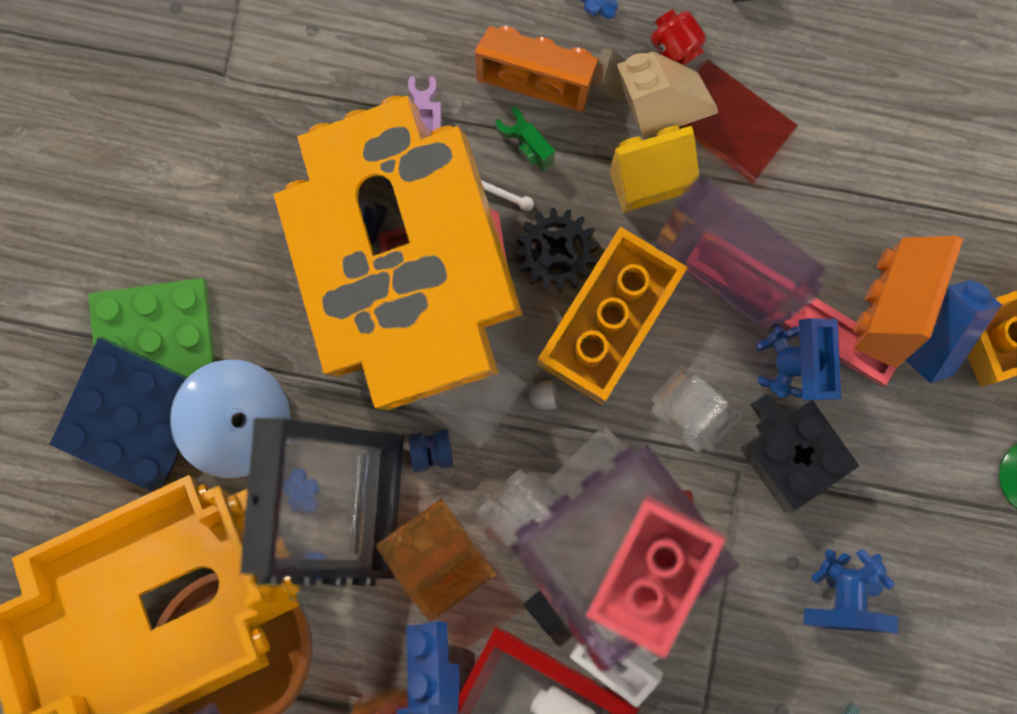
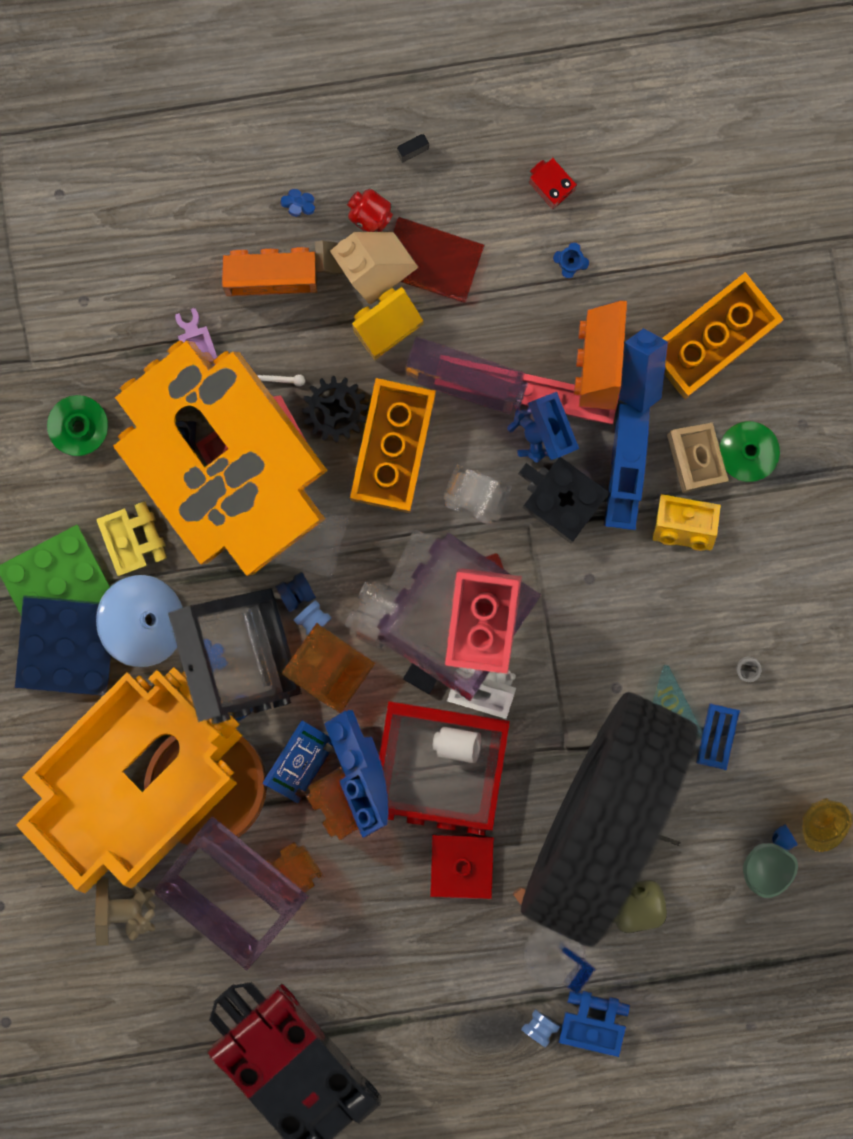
camera: 25 degrees left, 5 degrees up
(238, 149) = (62, 420): none -> green dish
(248, 317) = (122, 541): none -> light yellow plate
(356, 663) = (298, 761): none -> blue piece
(440, 487) = (311, 616): none -> medium blue wheel
(532, 144) = (288, 335): green plate -> none
(544, 395) = (364, 521): light grey hinge -> none
(852, 595) = (634, 586): blue piece -> none
(890, 444) = (628, 467): none -> blue slope
(900, 167) = (573, 251): none -> blue plate
(904, 79) = (551, 182): none -> red brick
(938, 538) = (686, 523): none -> yellow bracket
(972, 461) = (697, 457): none -> tan slope

